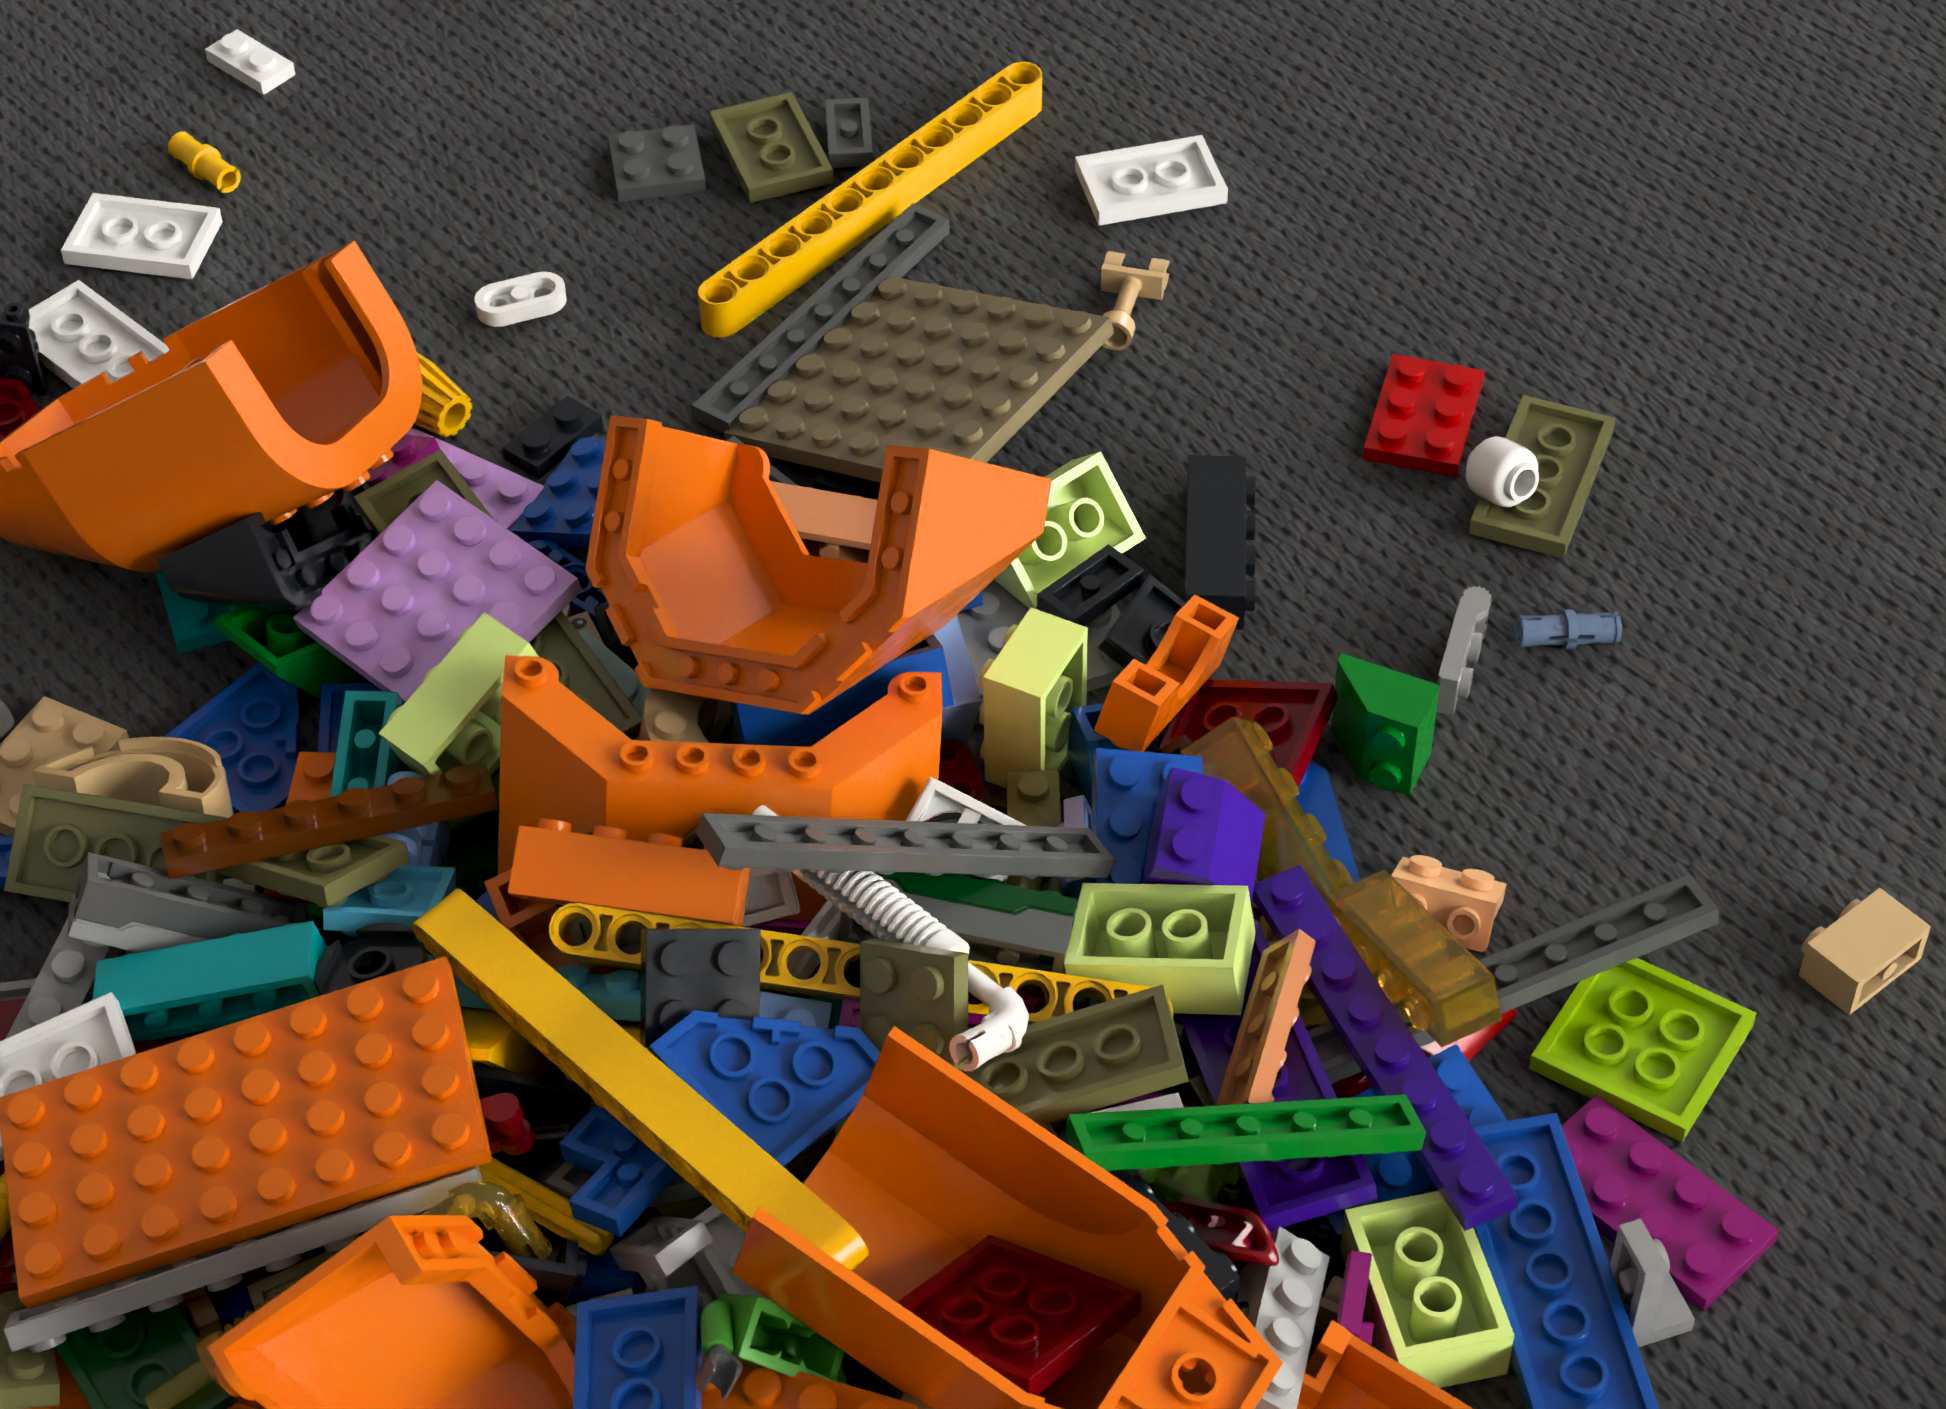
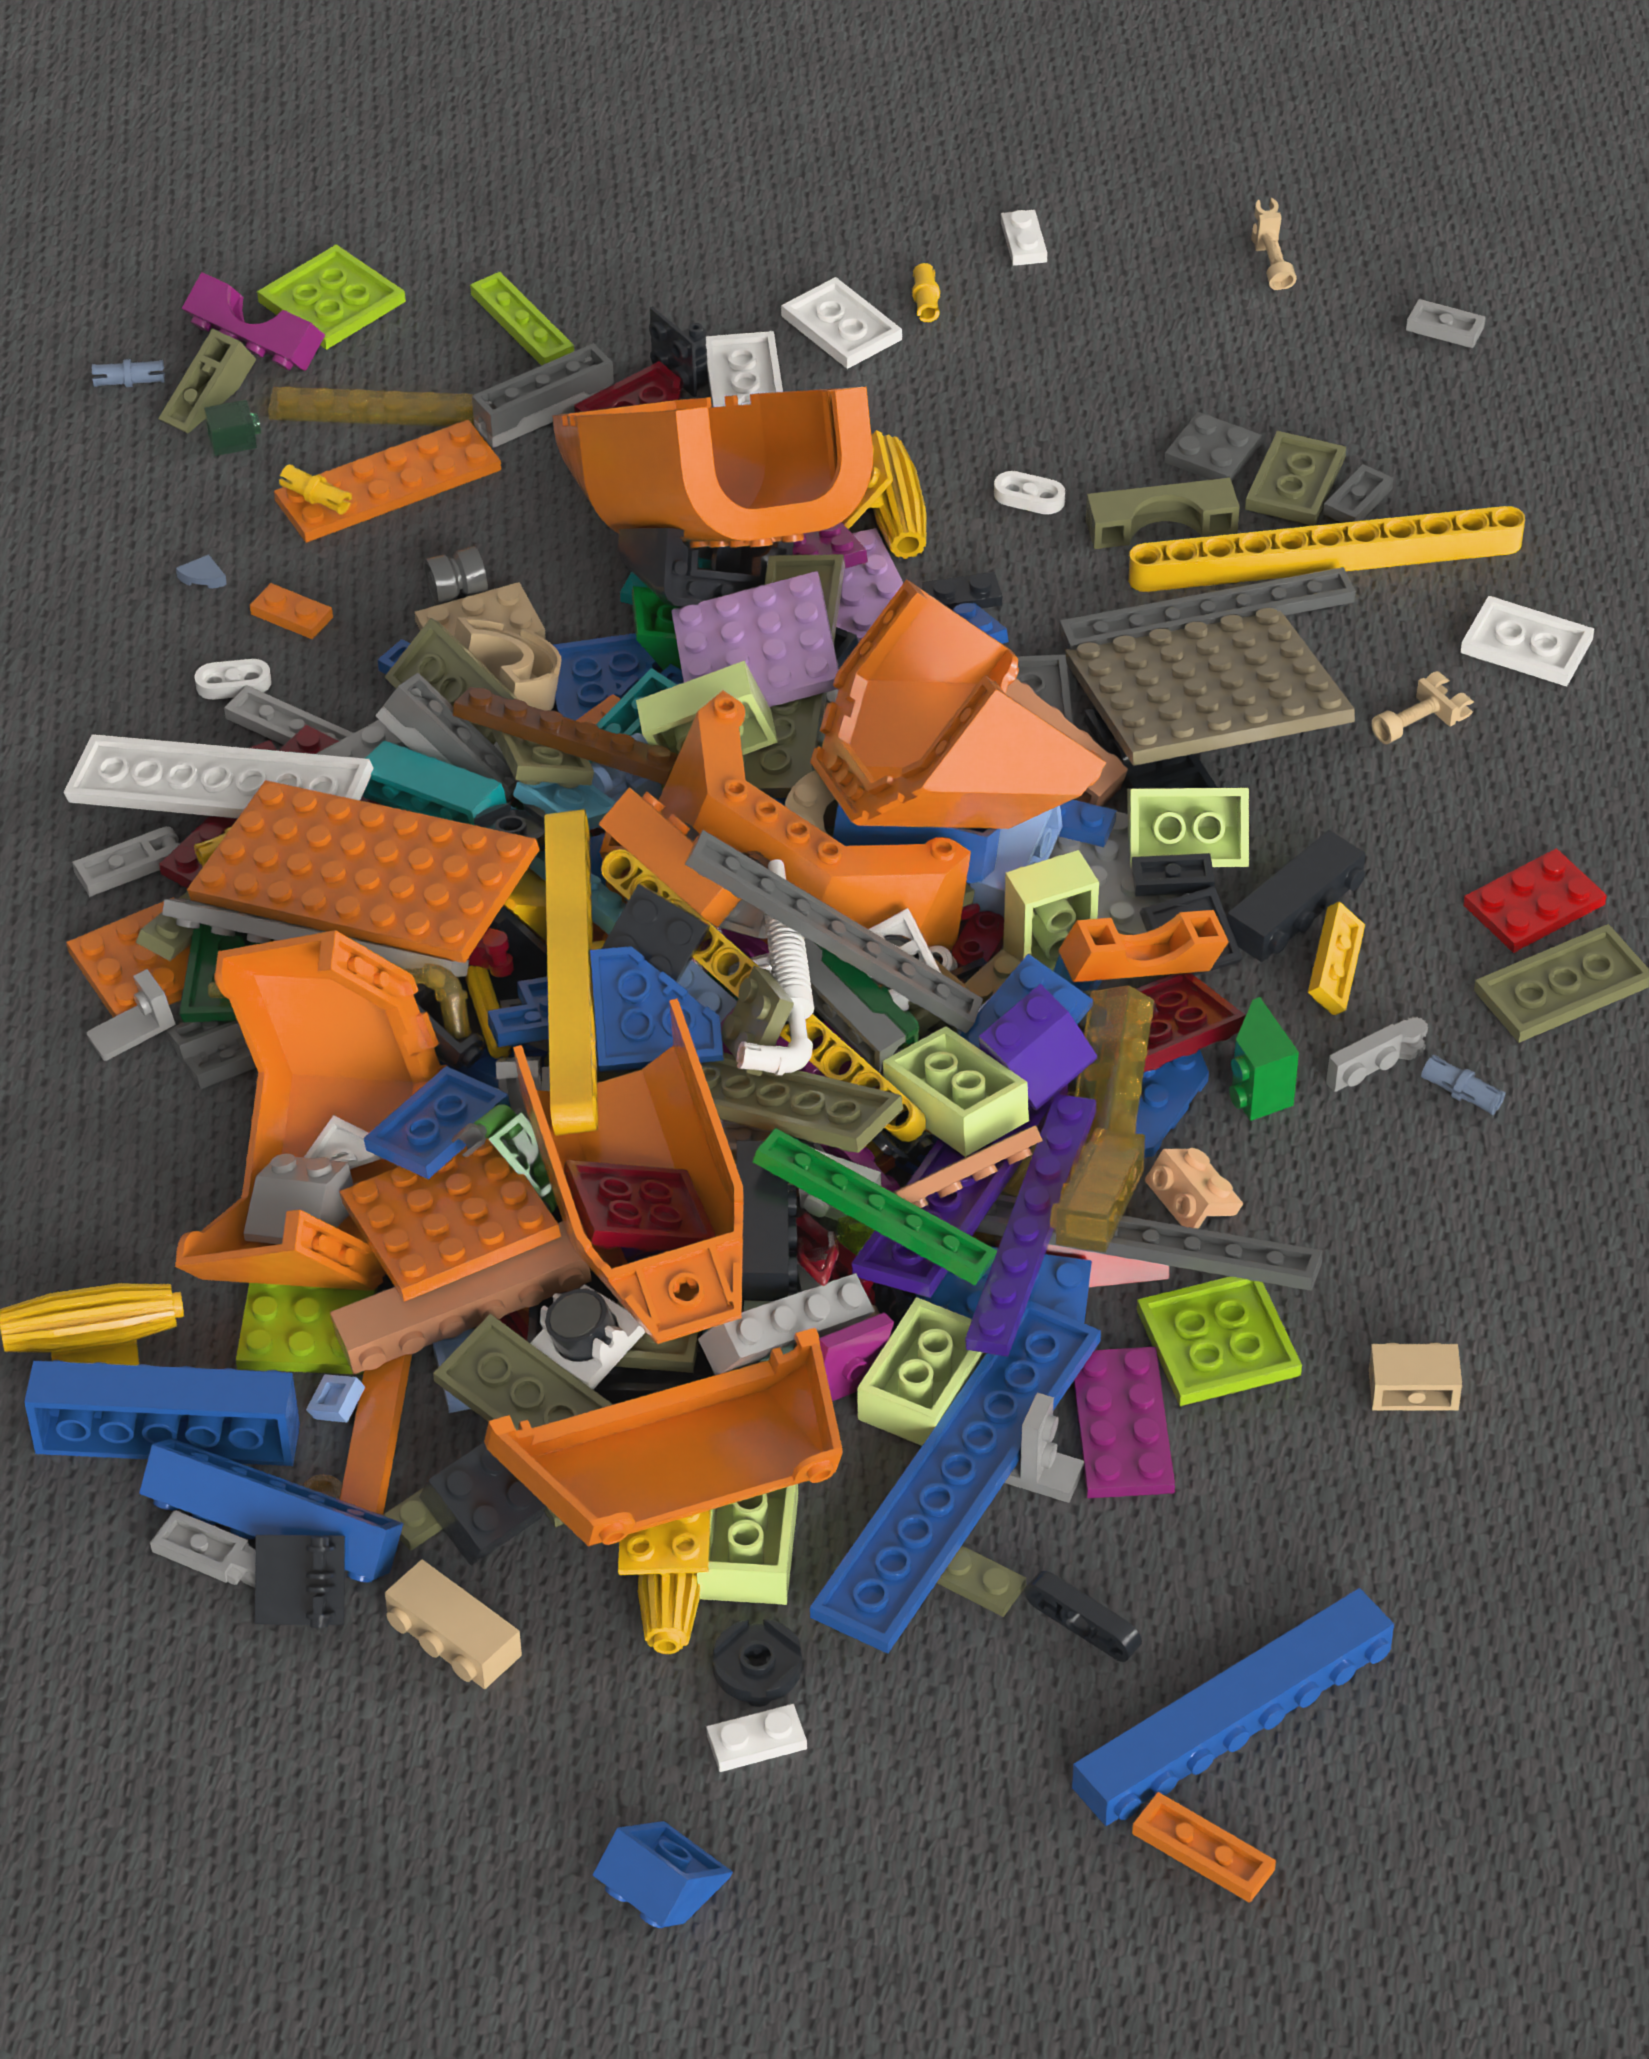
camera: 40 degrees right, 0 degrees up
(712, 218) = (1203, 505): none -> olive arch
(1319, 580) = (1336, 958): none -> yellow plate
(1502, 471) = (1518, 958): white head -> none

